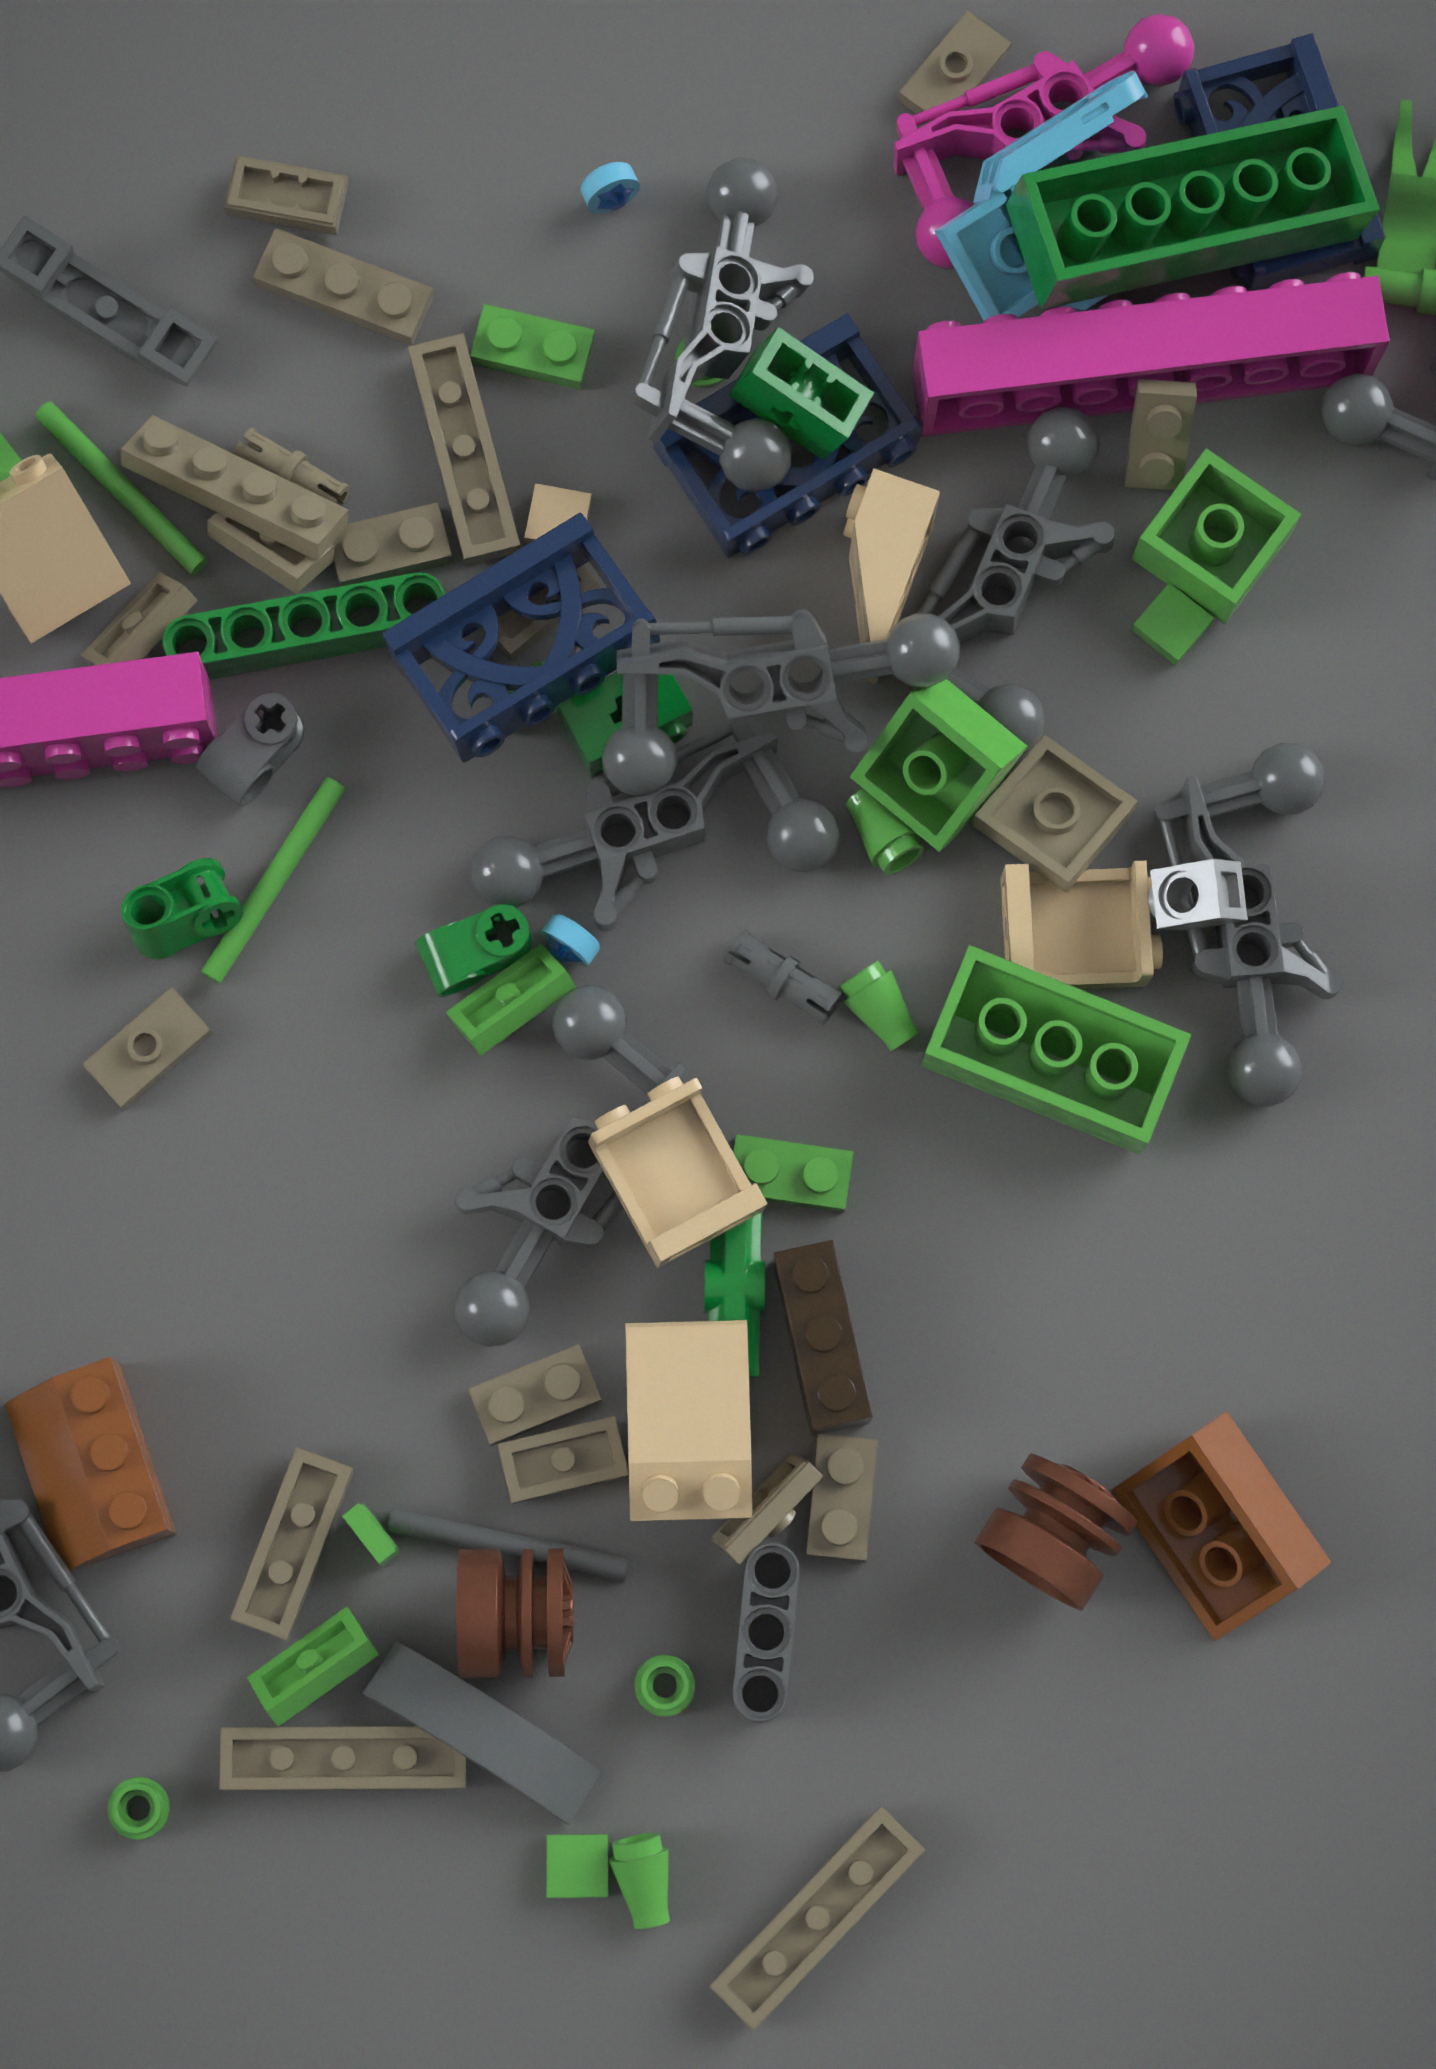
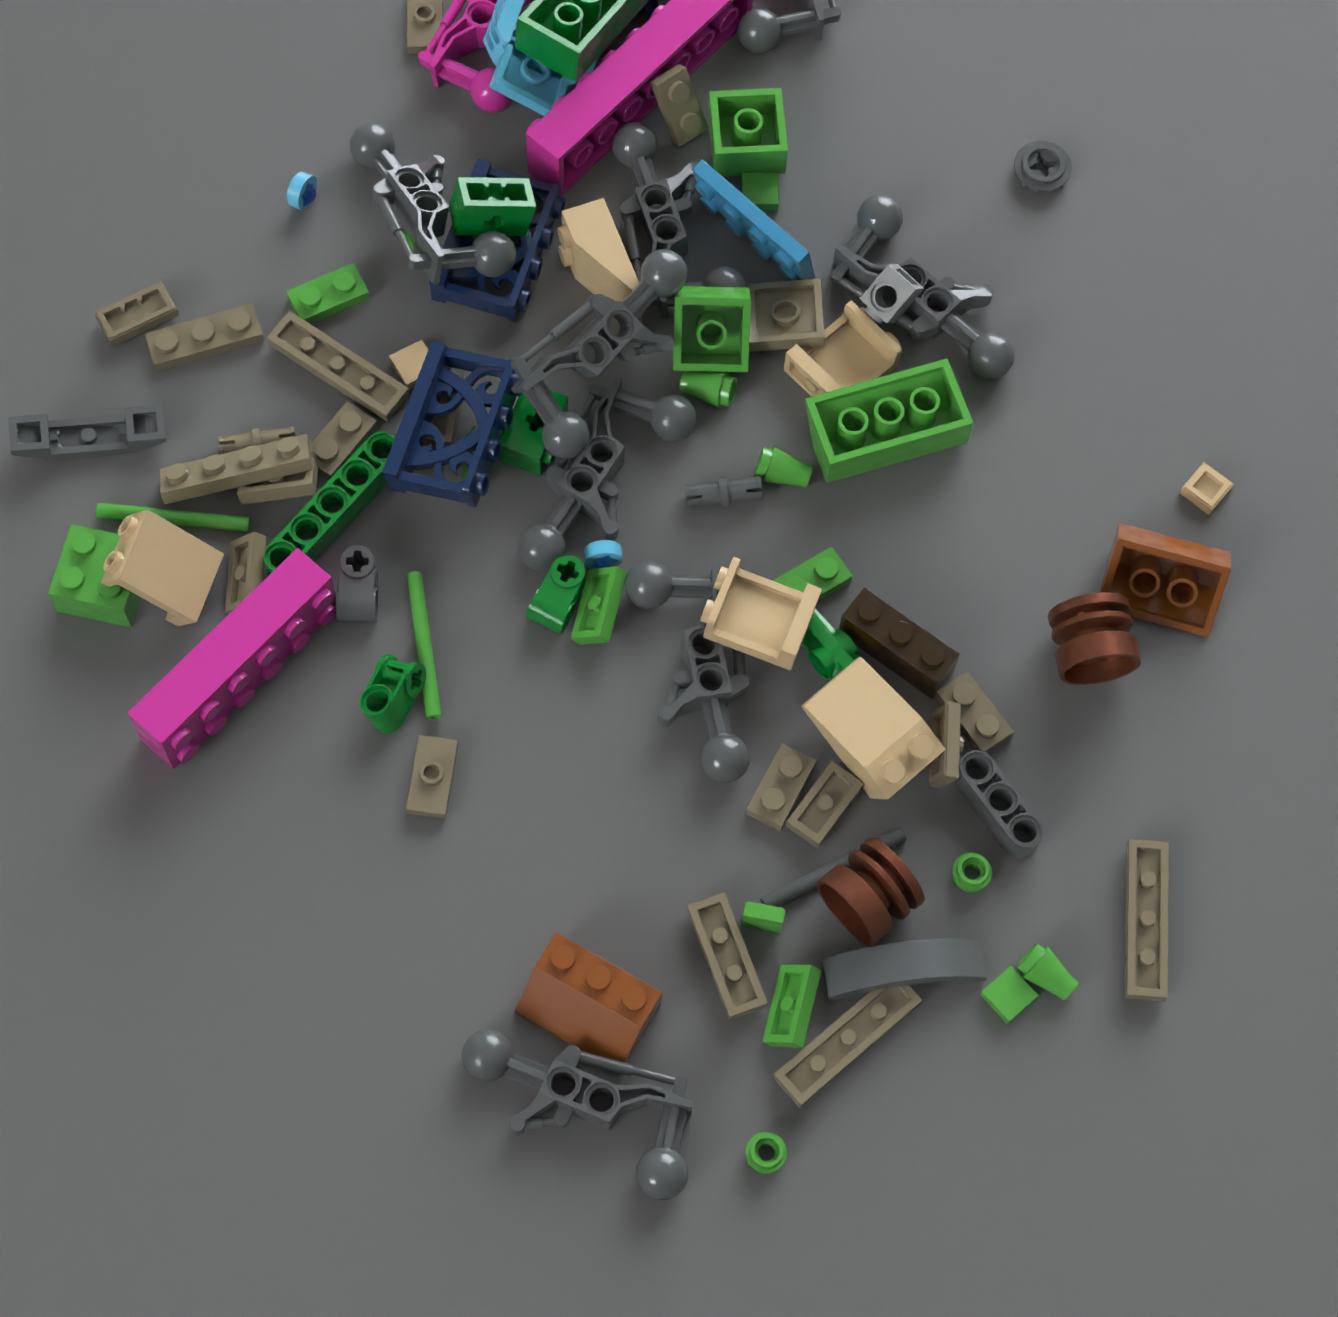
camera: 40 degrees left, 10 degrees down
(1111, 684) = (748, 219): none -> dark azure plate
(1386, 1454) = (1206, 488): none -> tan tile

